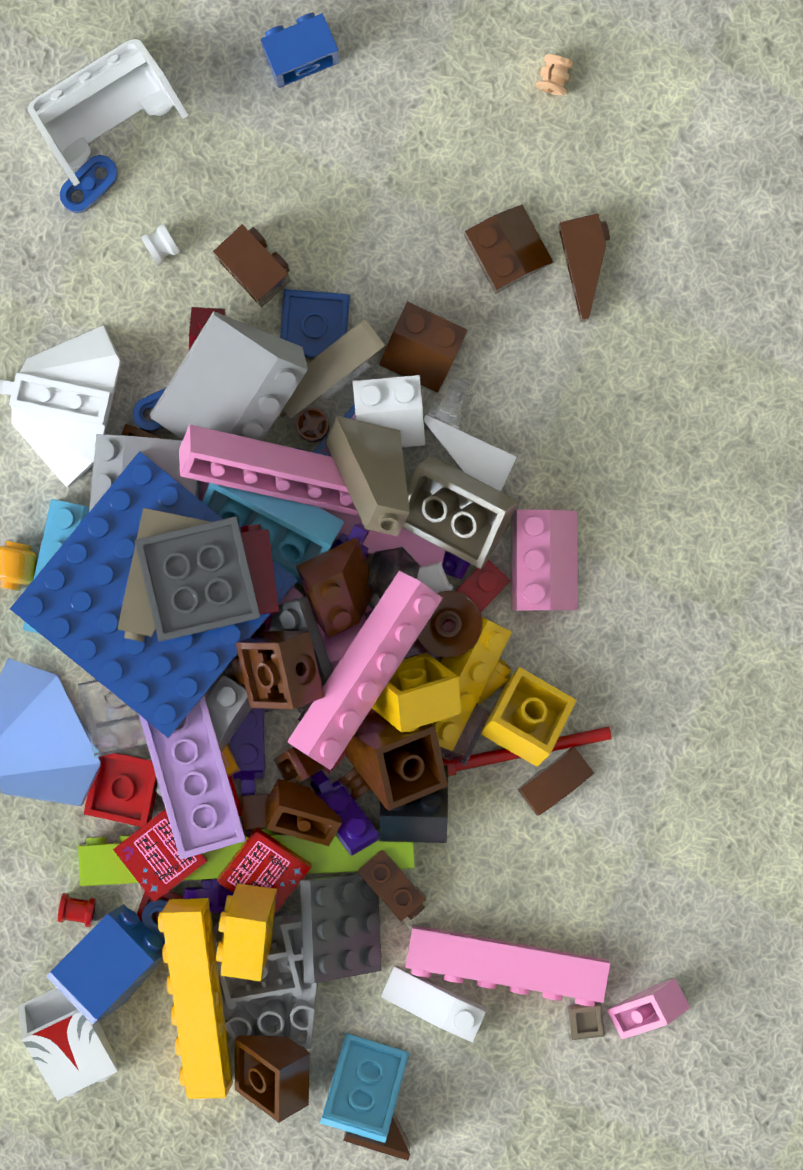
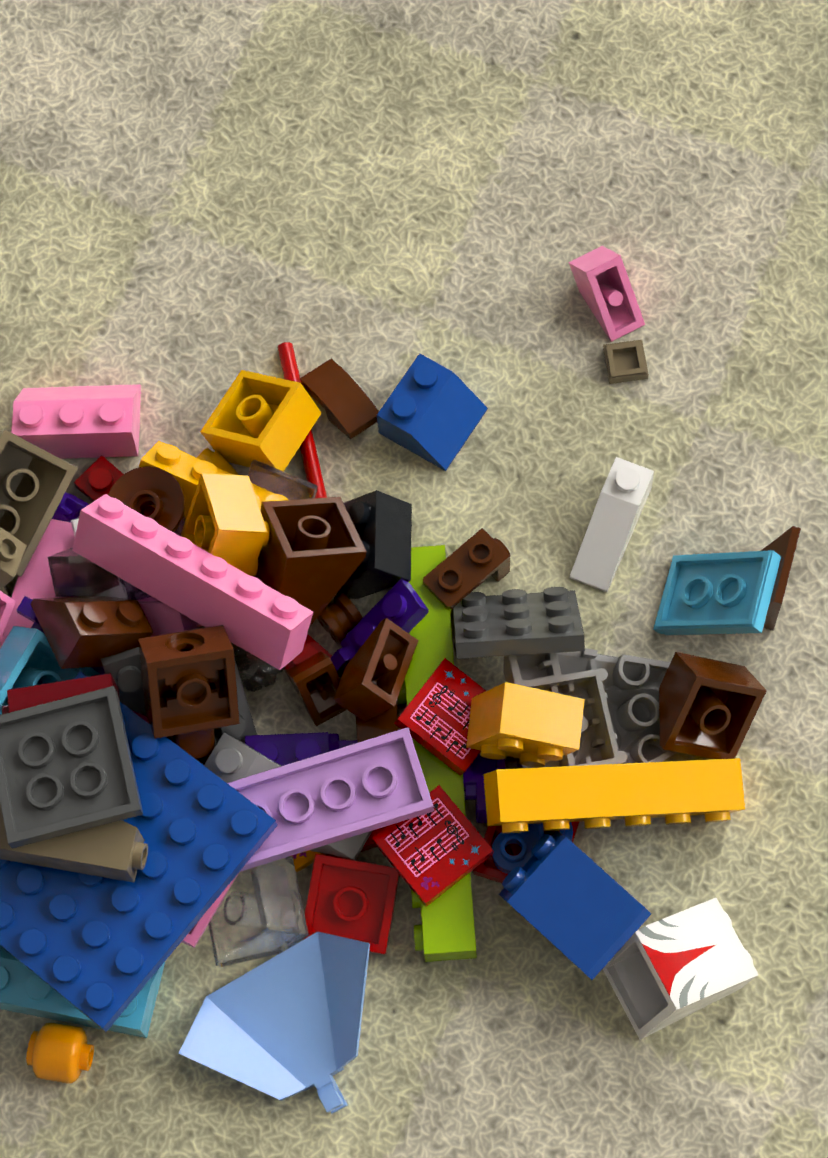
camera: 85 degrees left, 20 degrees down
(76, 910) = (510, 960): red bush -> none
(507, 964) = (559, 446): bright pink brick -> none
(538, 858) = (430, 412): none -> blue slope

